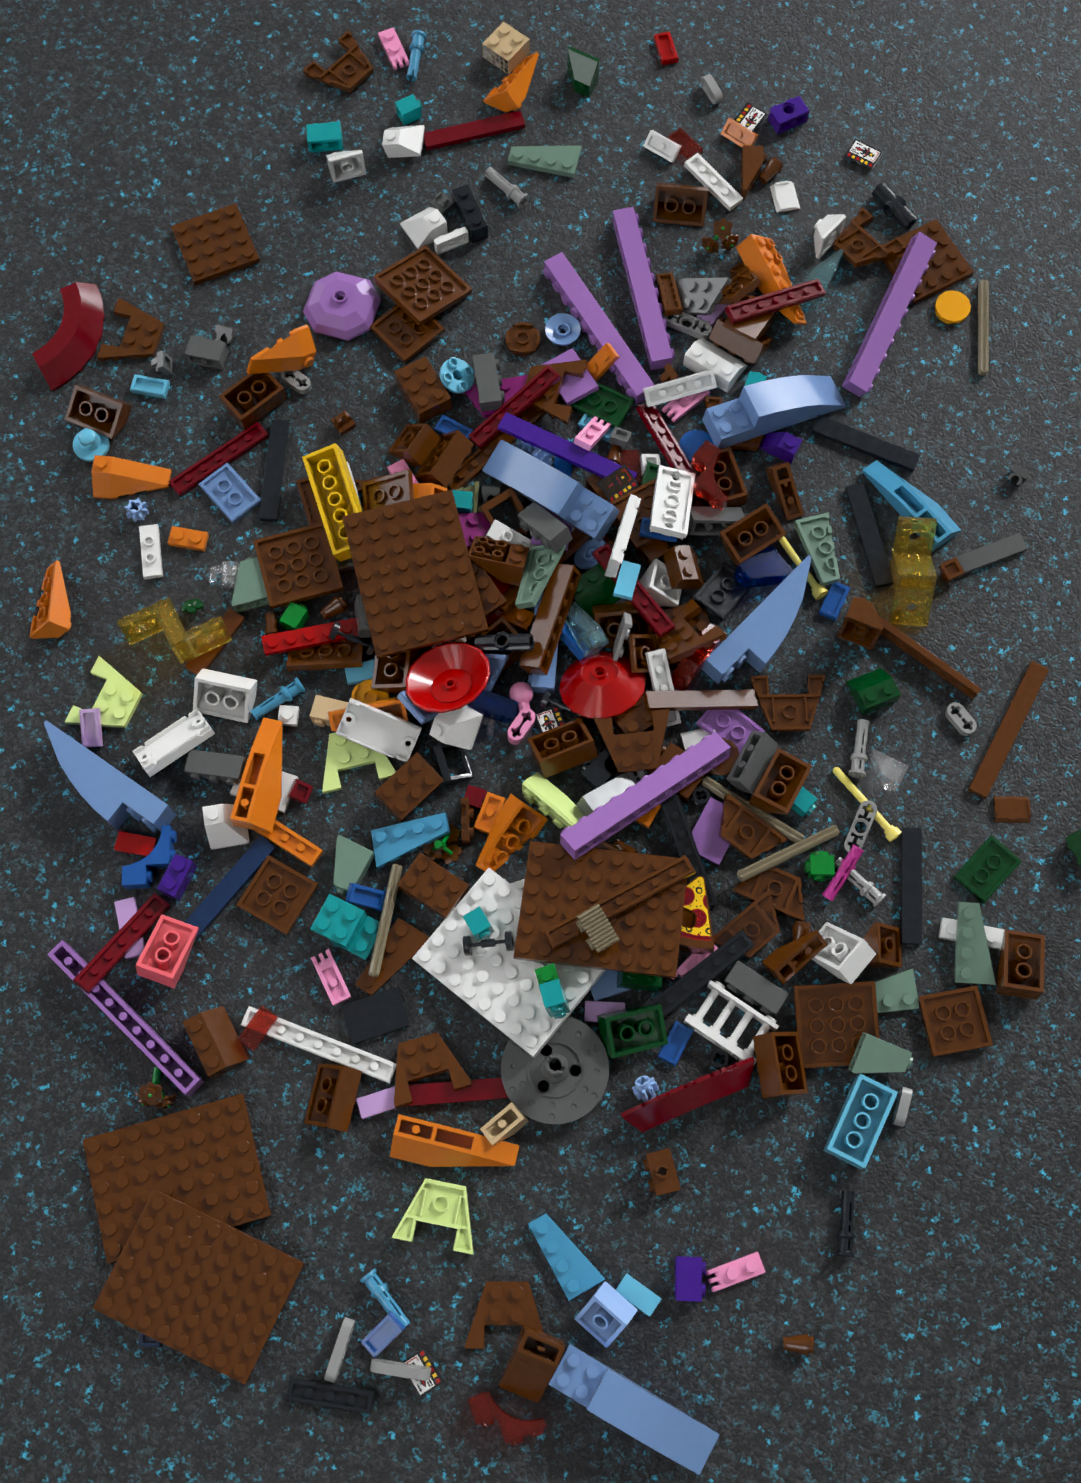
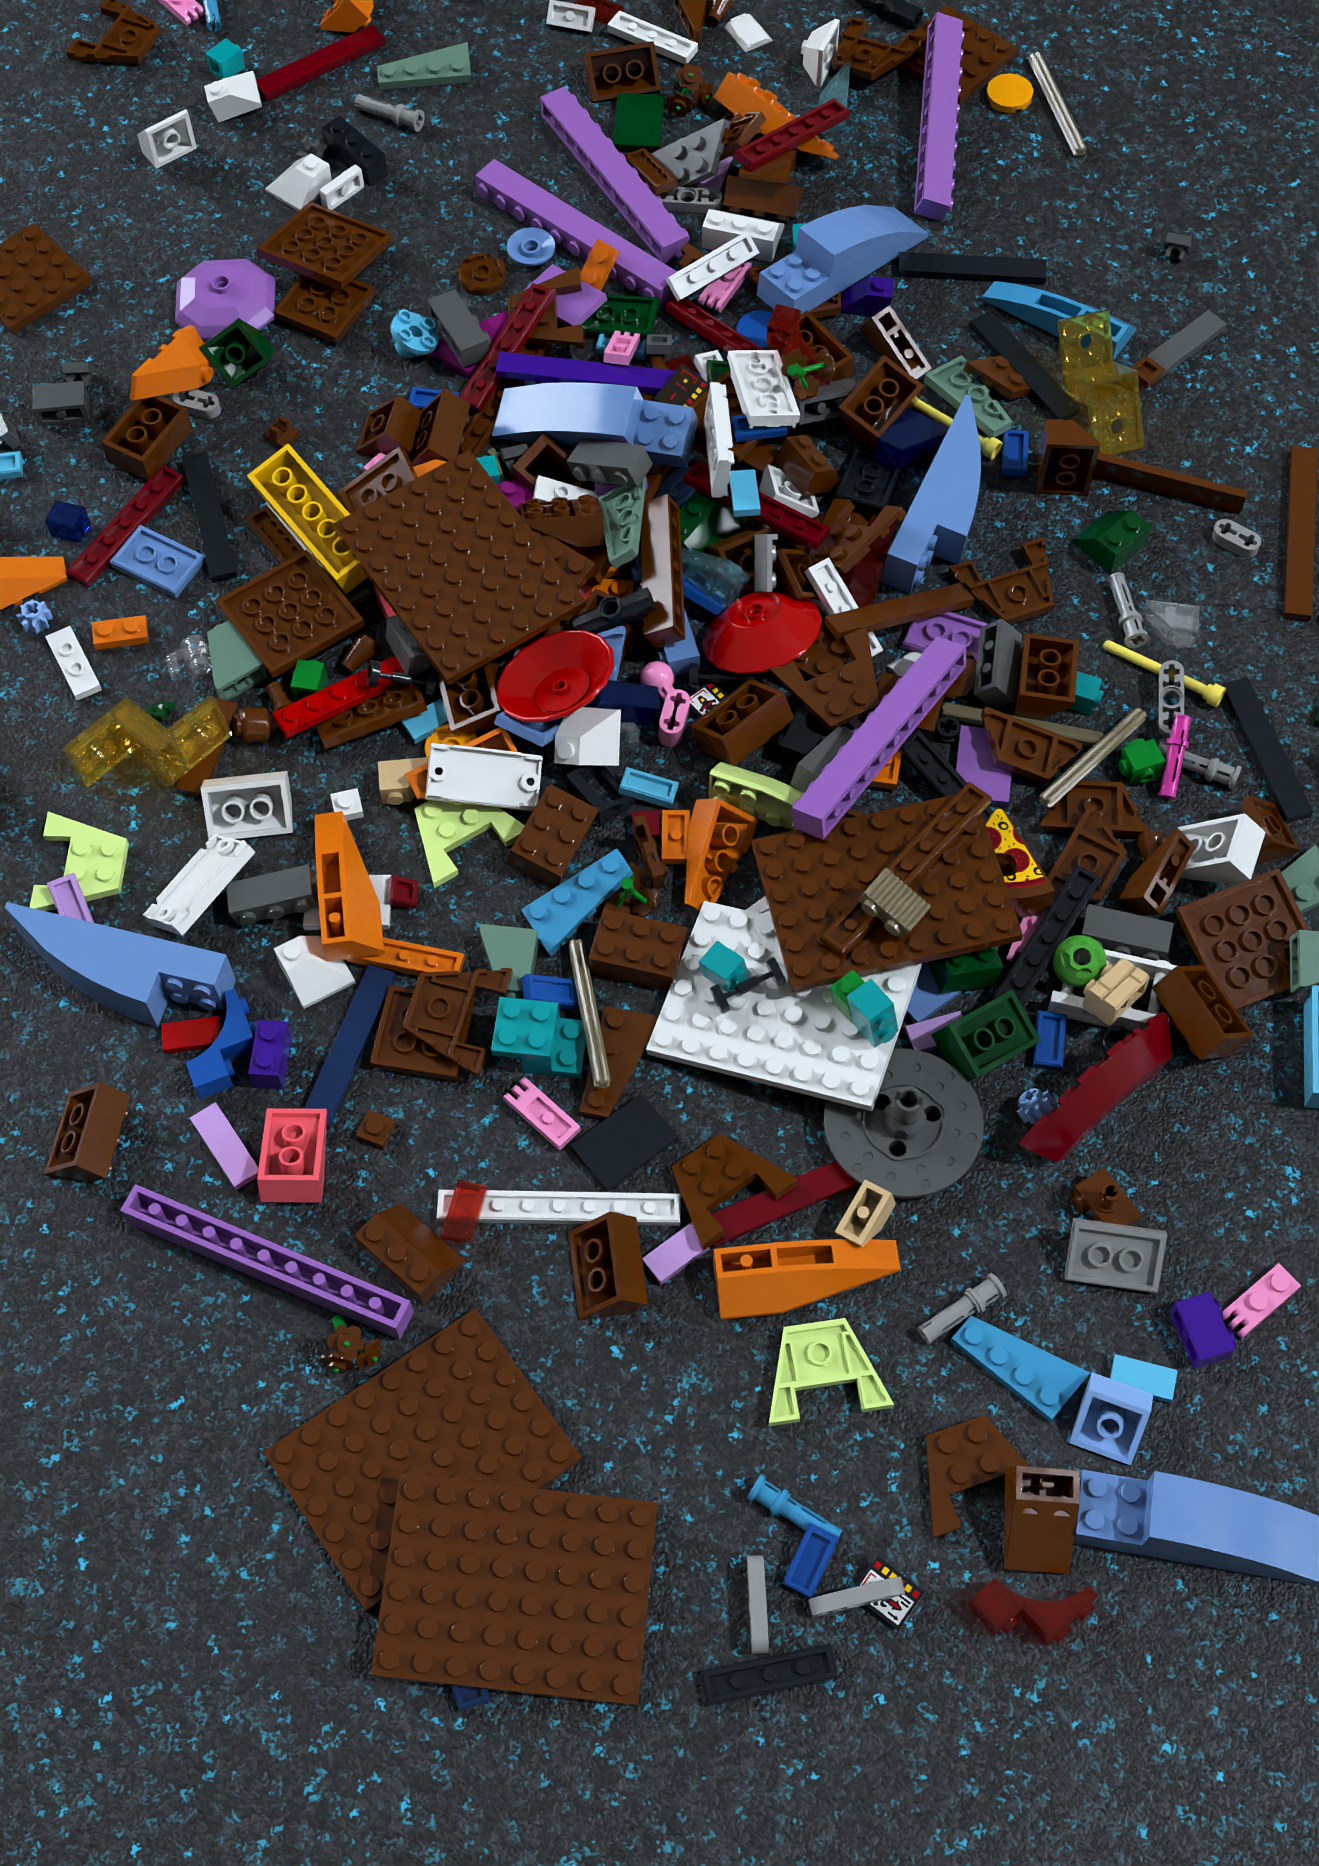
camera: 20 degrees left, 10 degrees down
(49, 891) = (88, 1133): none -> reddish brown slope
(121, 943) = (222, 1164): dark red tile -> none
(181, 445) = (68, 521): none -> clear blue brick
(225, 950) = (376, 1129): none -> reddish brown plate
(248, 638) = (254, 725): none -> reddish brown head
(285, 694) = (333, 779): dark azure pin -> none
(291, 887) = (441, 1009): none -> reddish brown wing
(324, 137) = (125, 117): teal brick -> none
(334, 353) = (237, 351): none -> dark green slope
(423, 390) = (375, 363): reddish brown brick -> none
(485, 771) = (648, 787): none -> medium azure tile
(552, 1205) = (972, 1302): none -> light grey pin
(653, 1209) = (1115, 1255): none -> light grey tile
(677, 249) = (638, 122): none -> dark green tile
(700, 500) = (796, 367): none -> reddish brown plant
(725, 994) = (1072, 973): none -> bright green piece
(727, 1030) = (1115, 990): none -> tan brick
(847, 538) = (999, 376): none -> reddish brown wing

